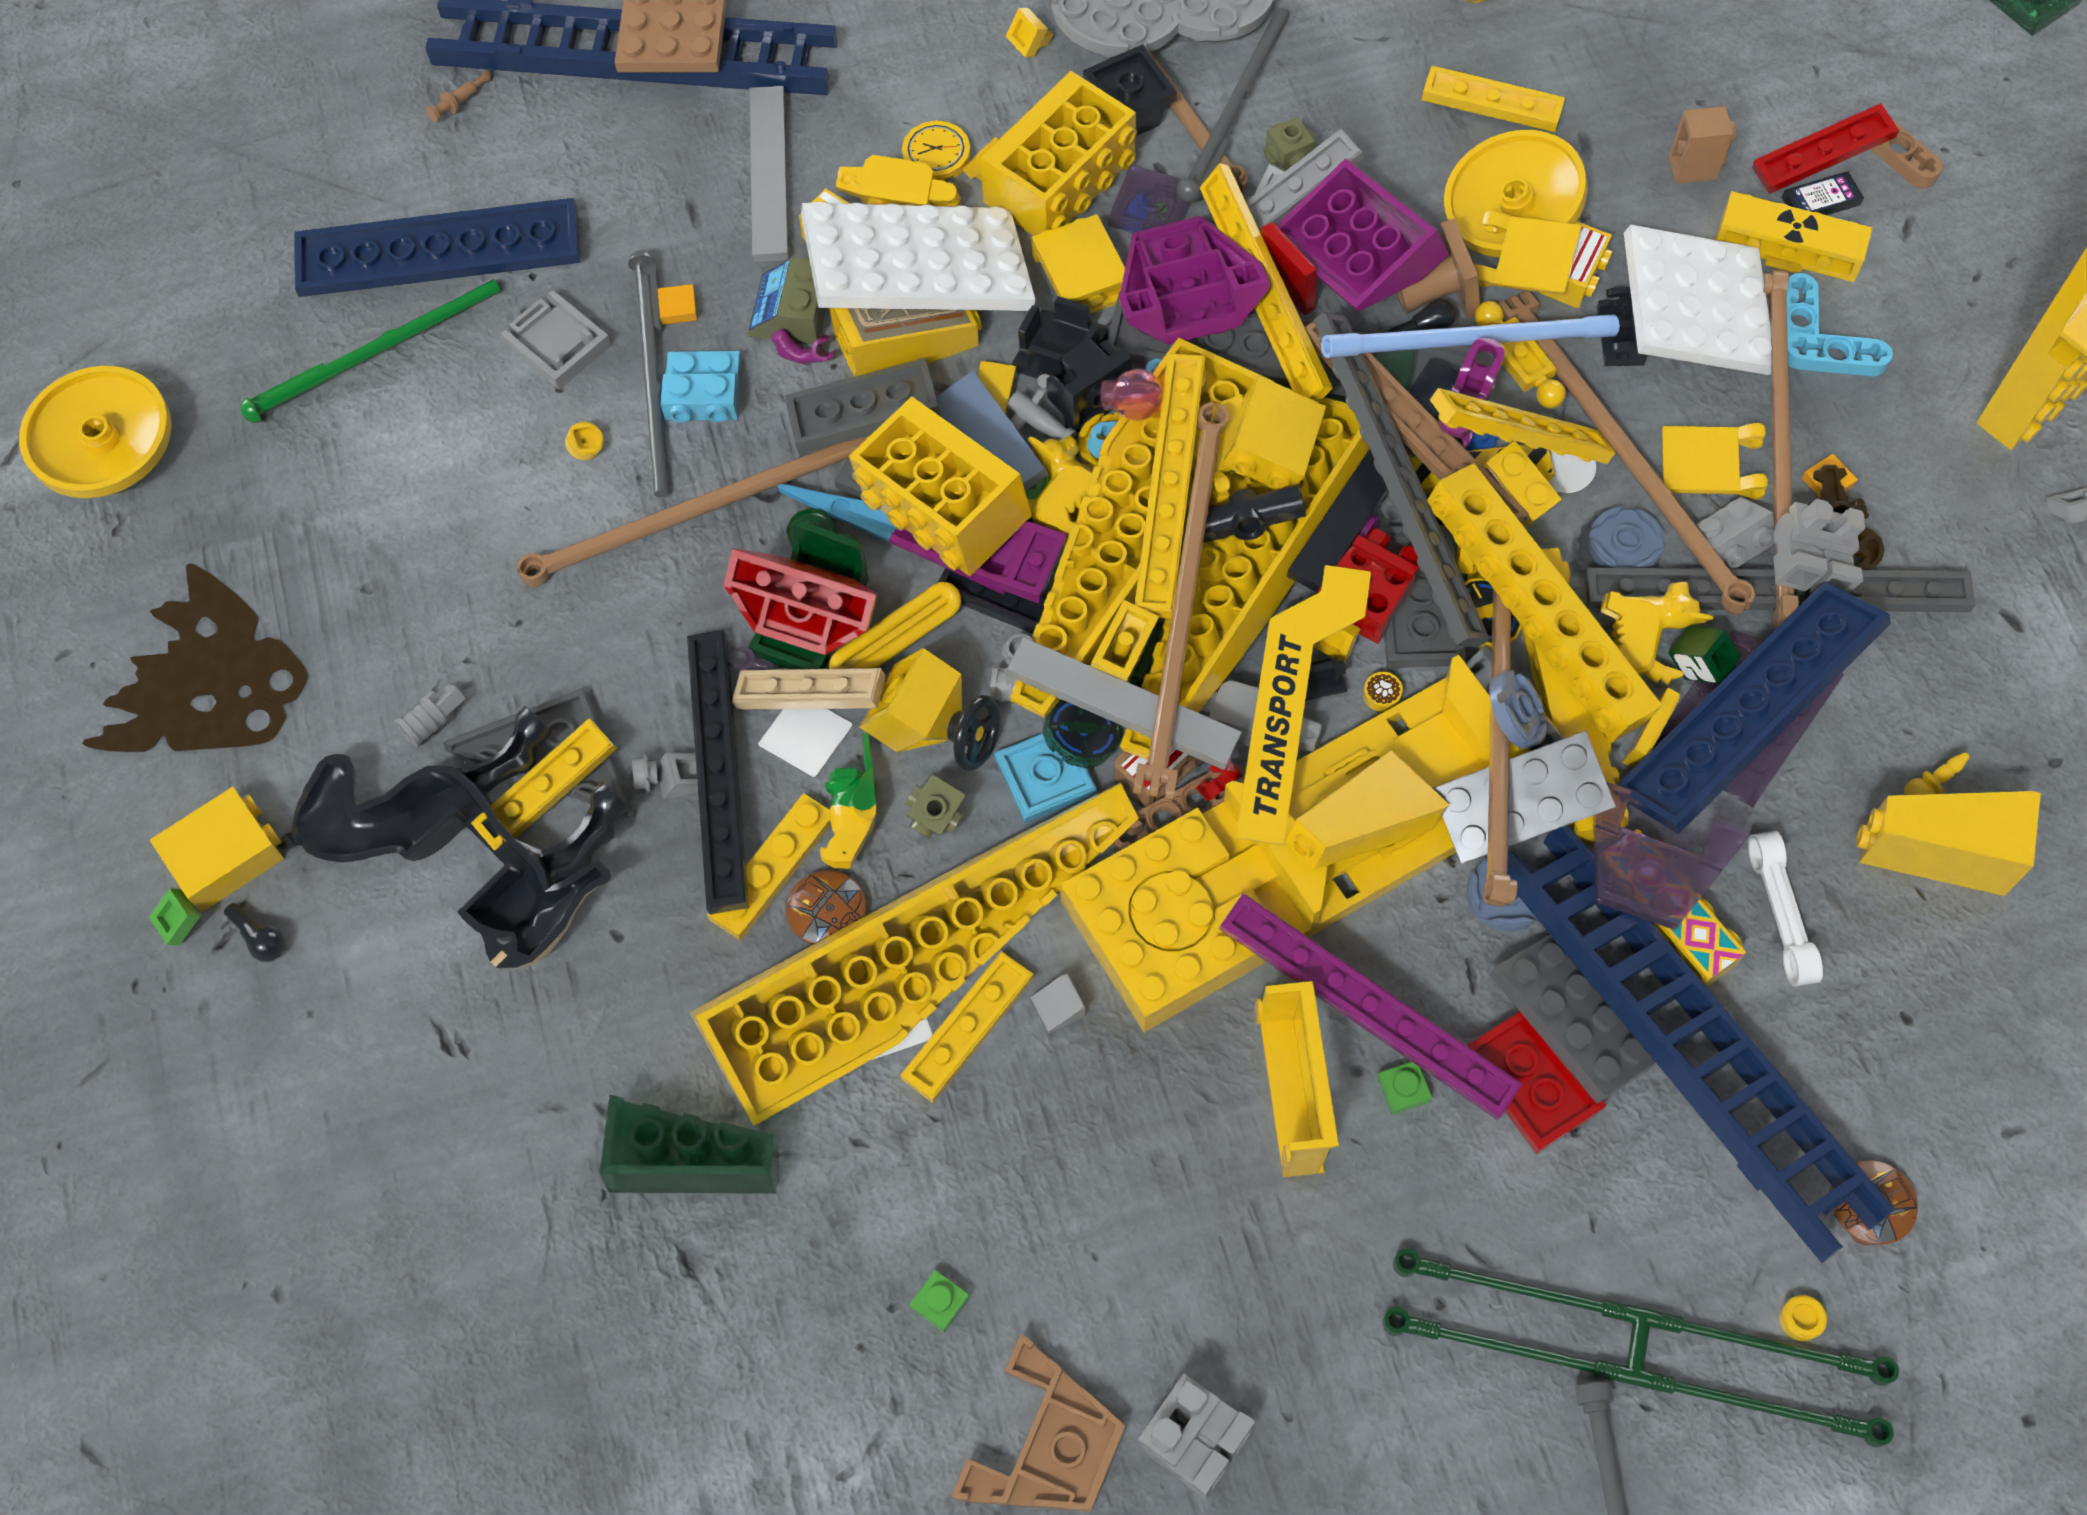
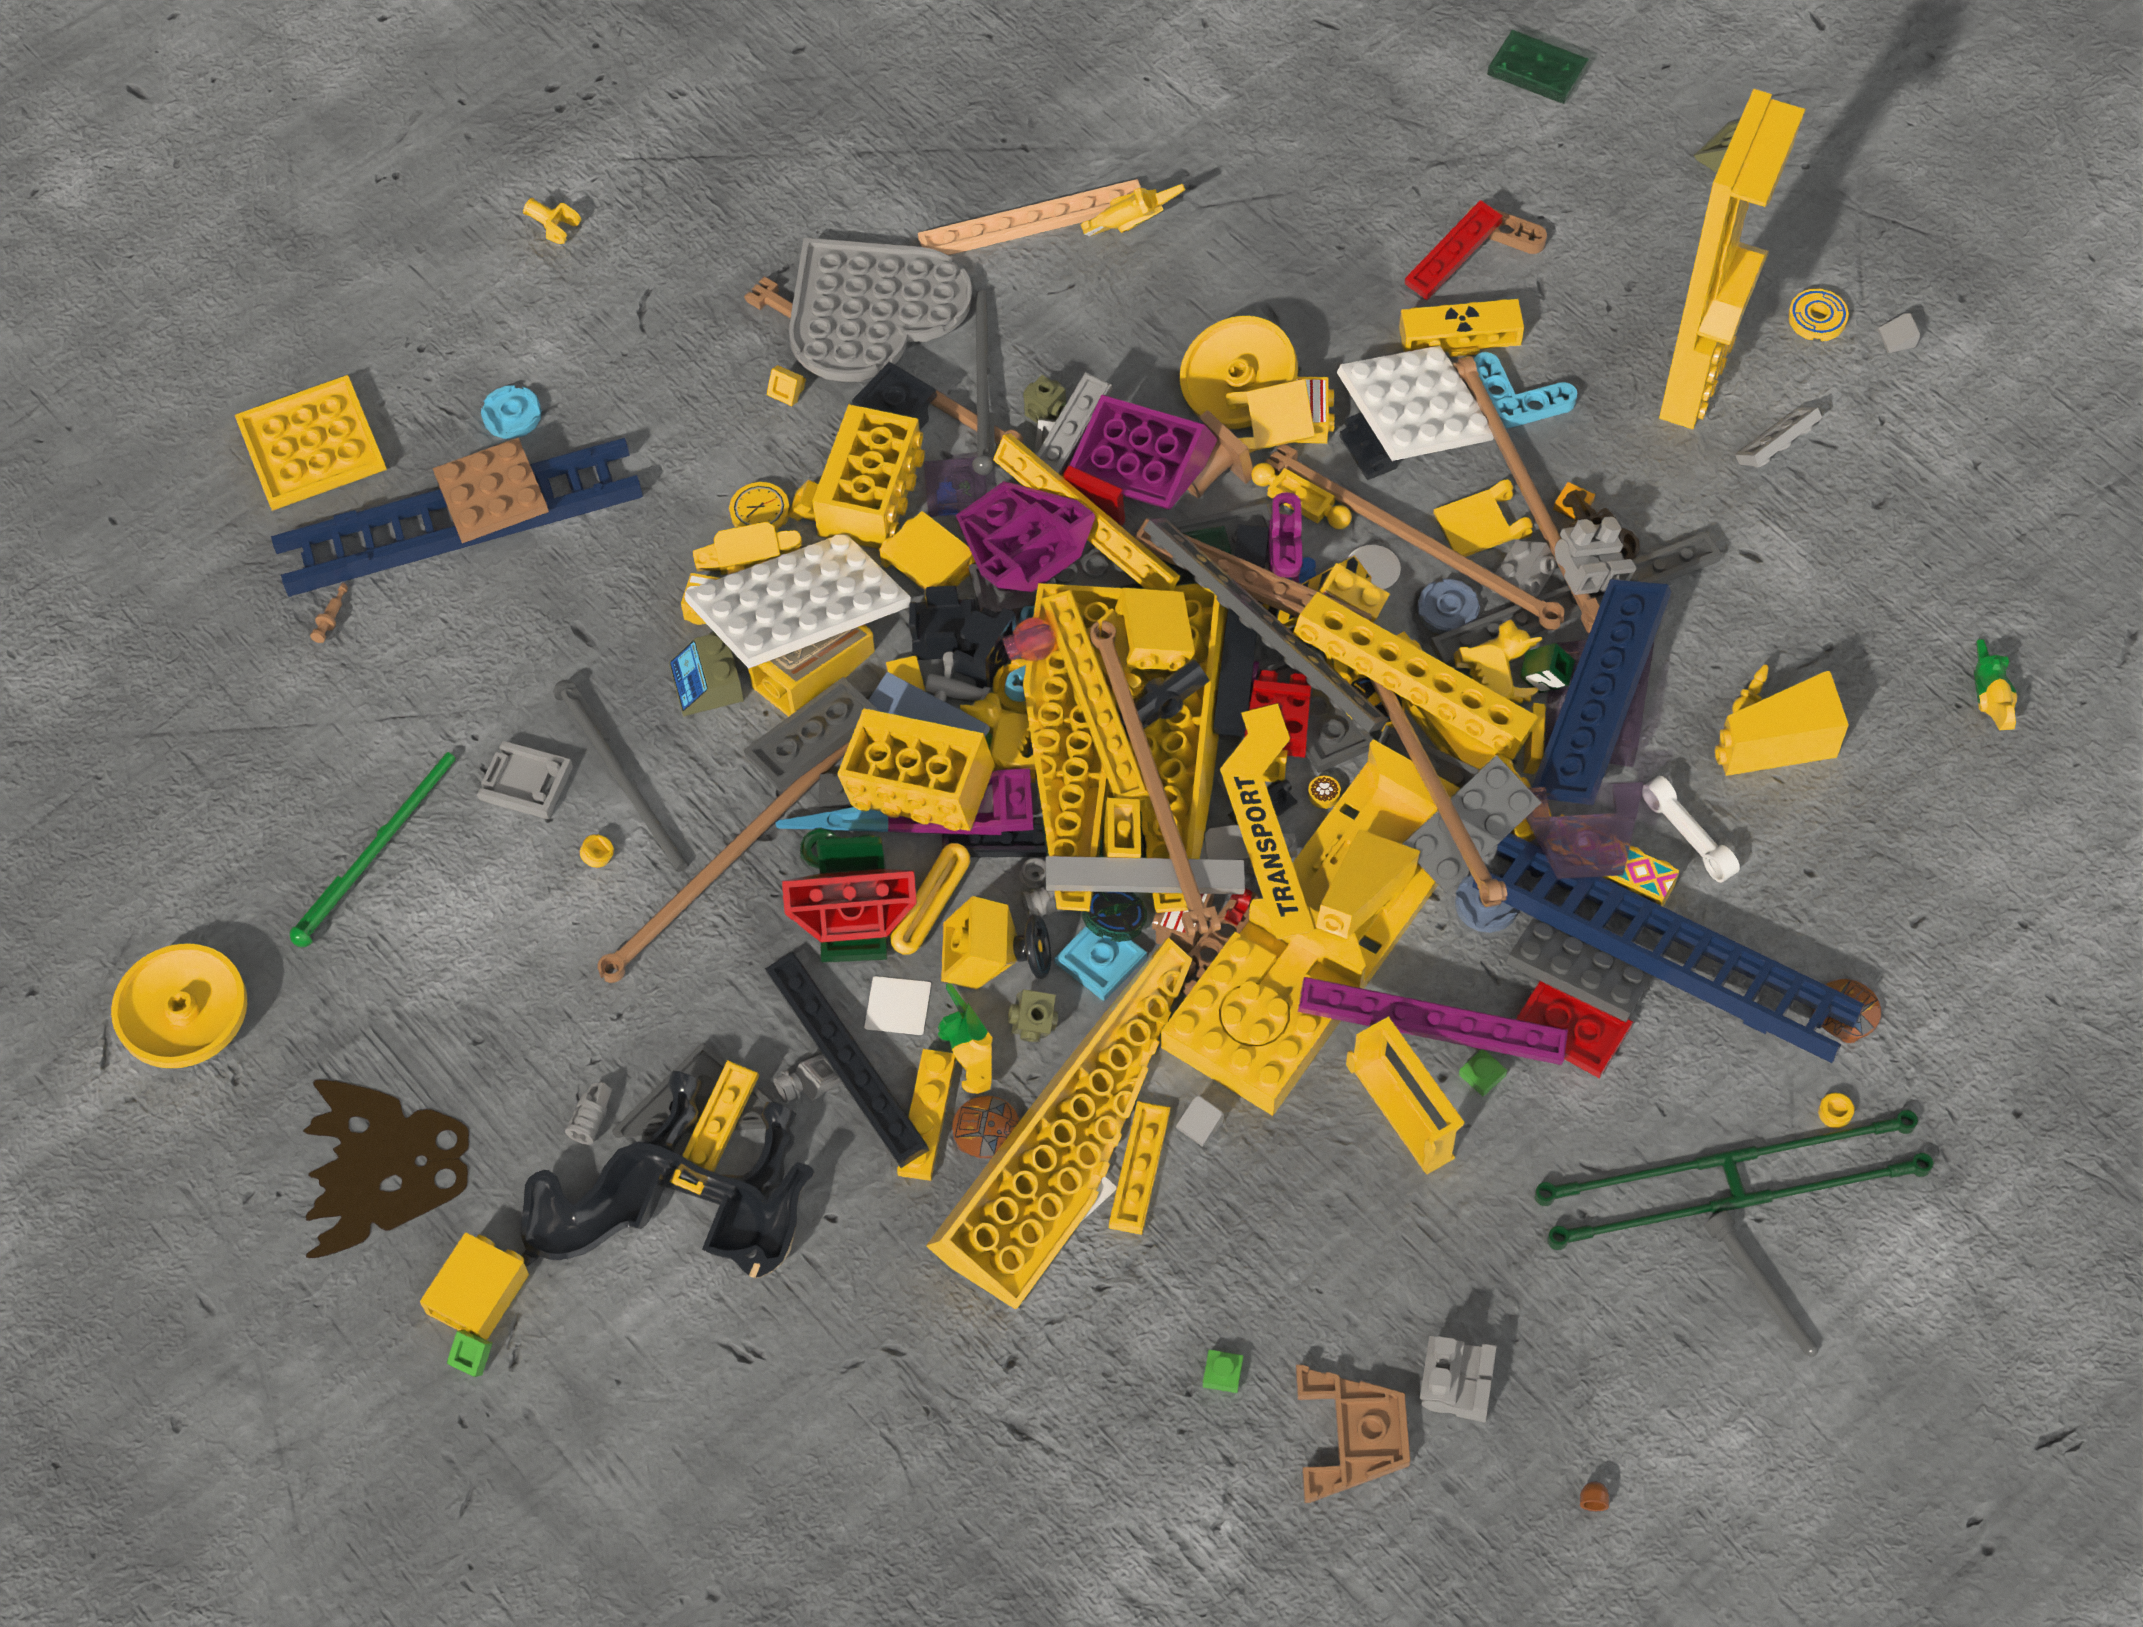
camera: 25 degrees left, 5 degrees down
(261, 939) = (549, 1340): black piece -> none
(436, 247) = (382, 744): dark blue plate -> none
(677, 304) = (612, 712): light orange tile -> none
(682, 1154) = (979, 1348): clear green wedge -> none
(701, 386) = (669, 770): medium azure plate -> none
(753, 662) = (827, 966): clear purple hand -> none
(768, 174) = (630, 579): light grey tile -> none
(792, 351) = (727, 713): magenta piece -> none
(809, 688) = (887, 967): tan tile -> none
(1354, 344) = (1186, 535): light blue piece -> none
(1435, 315) = (1222, 492): black piece -> none
(1493, 98) = (1182, 303): yellow plate -> none
(1517, 709) = (1437, 760): sand blue tile -> none
(1521, 426) = (1337, 550): yellow plate -> none
(1701, 144) = (1361, 281): medium nougat brick -> none
(1825, 195) = (1469, 285): tile -> none

